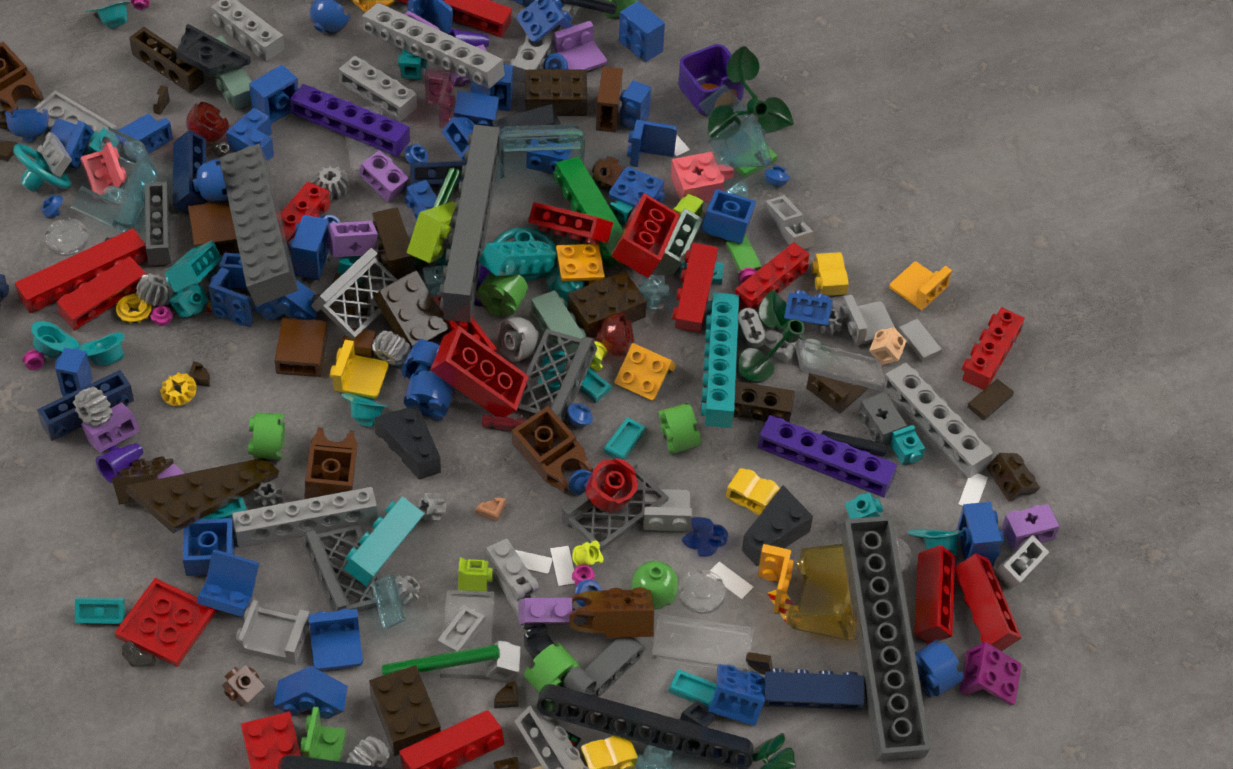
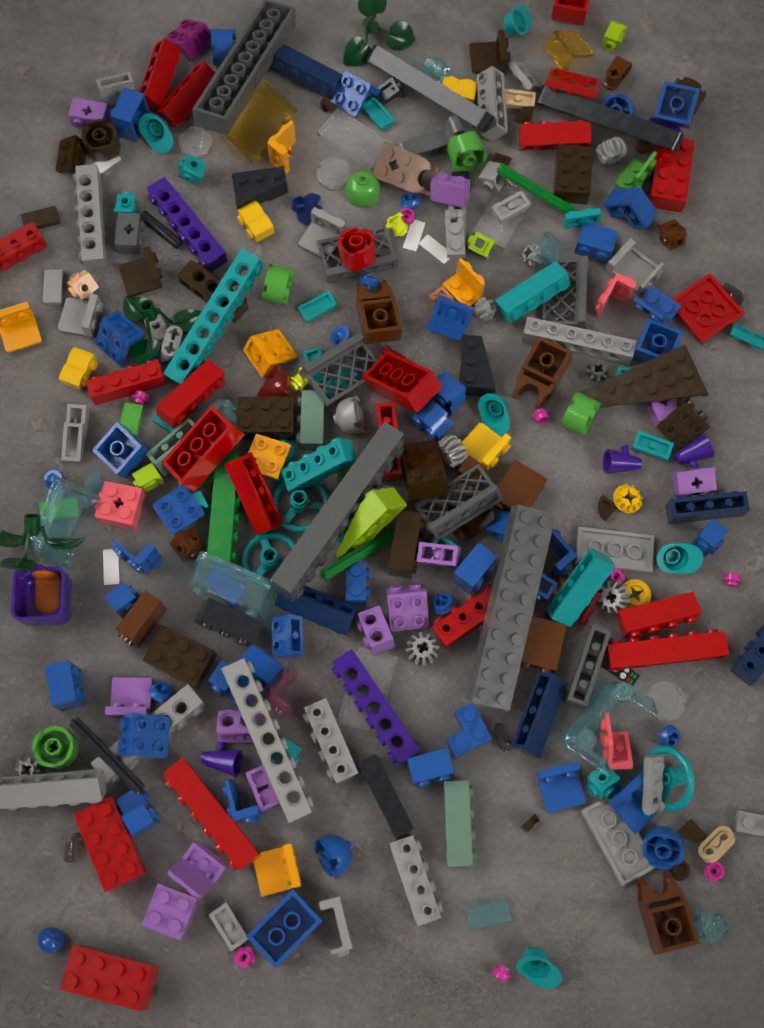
camera: 150 degrees left, 20 degrees up
(51, 339) = (712, 582): teal piece -> none
(92, 407) = (709, 481): light grey gear -> none
(163, 59) = (509, 868): dark brown brick -> none
(172, 32) = (488, 914): none -> clear light blue tile
(172, 341) = (627, 550): none -> light grey tile
(172, 447) = (652, 446): none -> teal plate
(200, 417) = (620, 461): none -> dark purple piece
(207, 122) = (502, 763): clear red cylinder -> none
(208, 52) = (474, 839): black wing -> none
(211, 182) = (531, 675): blue cylinder -> none
(283, 586) = (619, 288): none -> coral bracket
(305, 67) = (385, 796): none -> black brick
(310, 428) = (541, 416): none -> dark pink plate
(361, 666) = (578, 218): none -> teal plate
(362, 206) = (407, 606): none -> medium lavender bracket
(416, 153) = (335, 646): blue hat -> none
(465, 471) = (450, 318): none -> blue bracket
(468, 522) = (465, 284): none -> light orange bracket
(520, 195) = (267, 552): none -> teal piece
(732, 580) = (309, 175): white sticker -> none
(840, 365) = (130, 278): clear tile -> none
(992, 488) = (101, 140): none -> dark brown brick

